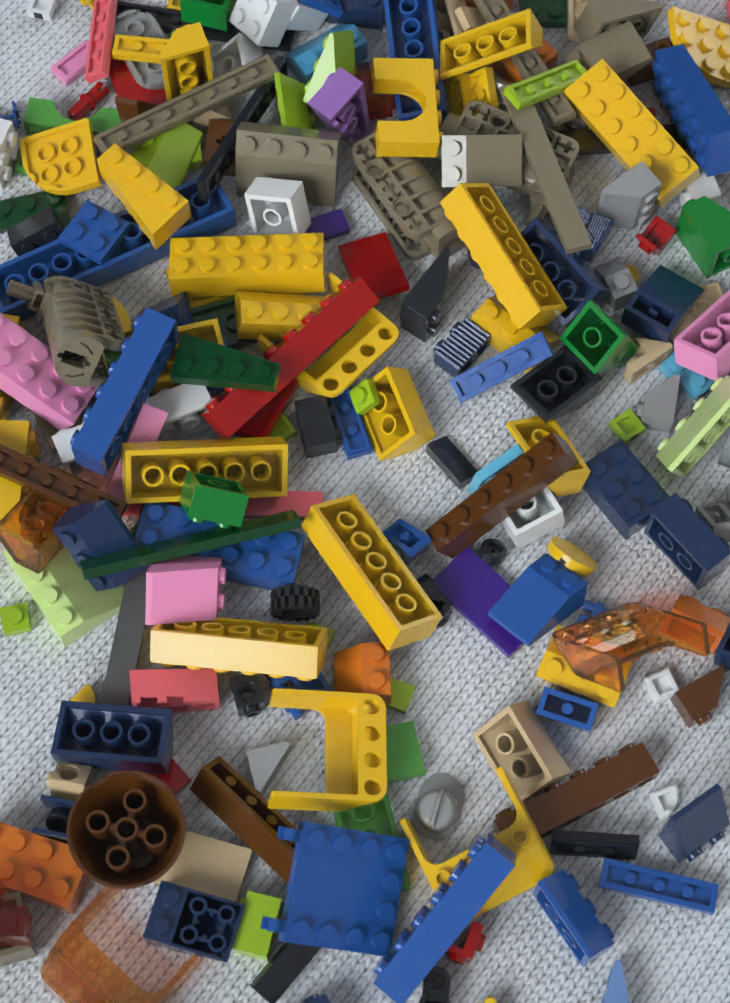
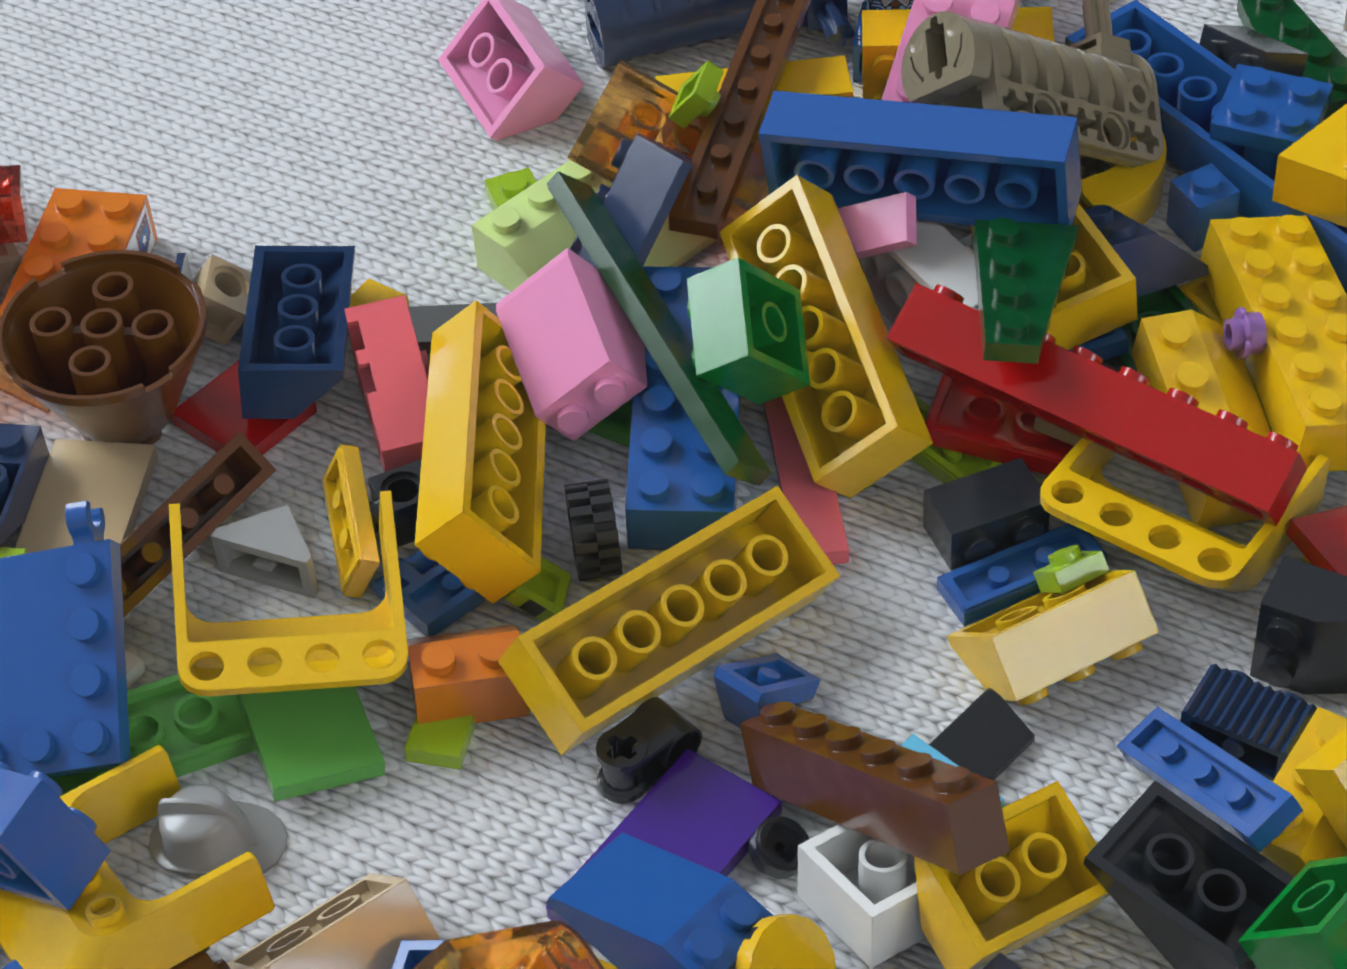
camera: 85 degrees right, 20 degrees down
(28, 494) = (697, 95): none -> lime plate
(133, 284) = (1196, 200): none -> blue brick
(252, 283) = (1245, 333): none -> medium lavender plate
(253, 724) = (350, 521): none -> yellow tile

